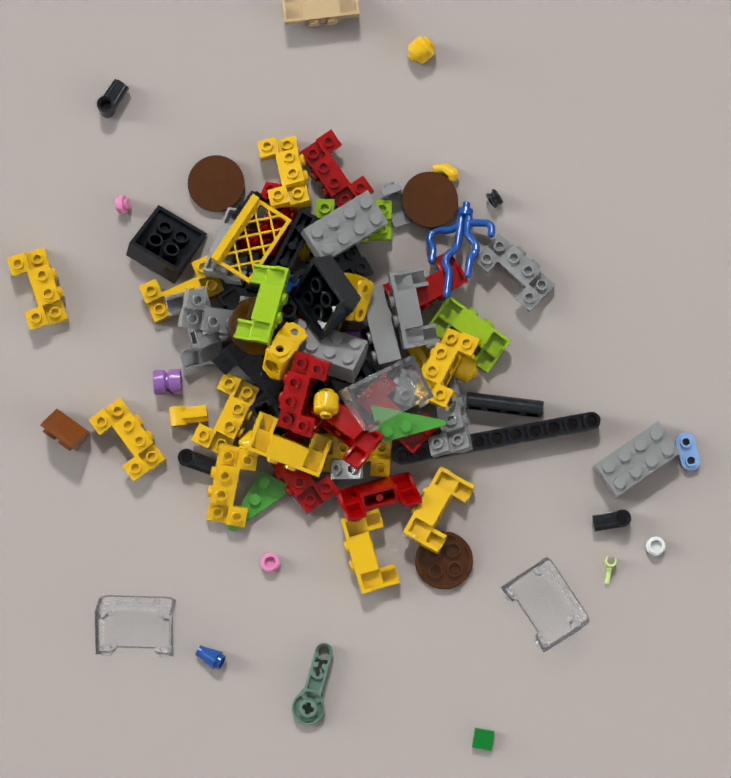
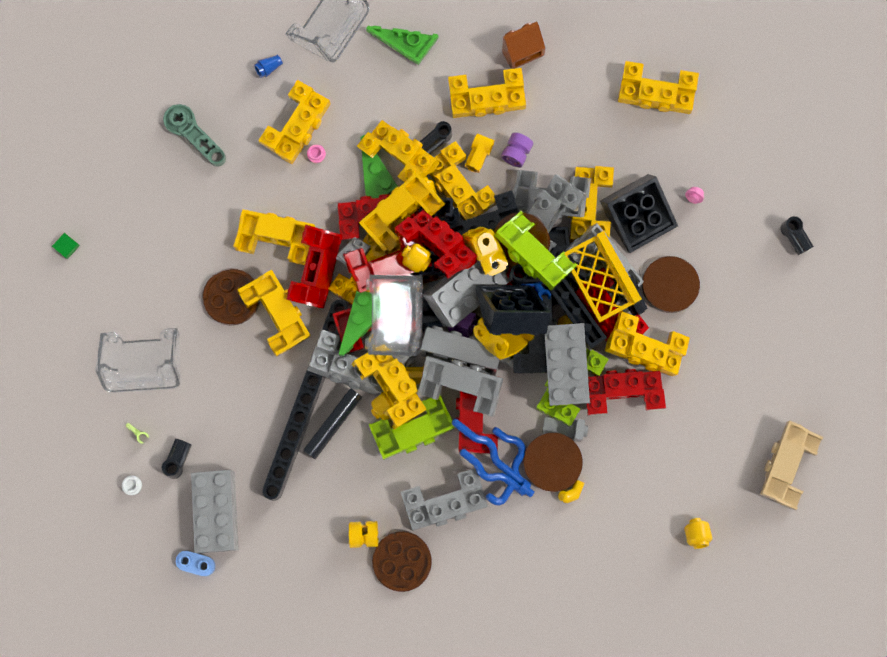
camera: 120 degrees right, 5 degrees down
(117, 537) = (409, 44): none -> bright green wing
(251, 591) = (300, 125): none -> yellow bracket
(494, 198) = (522, 521): black bush -> none
(584, 280) = (402, 561): none -> reddish brown tile
(584, 329) = (356, 536): none -> yellow wheel

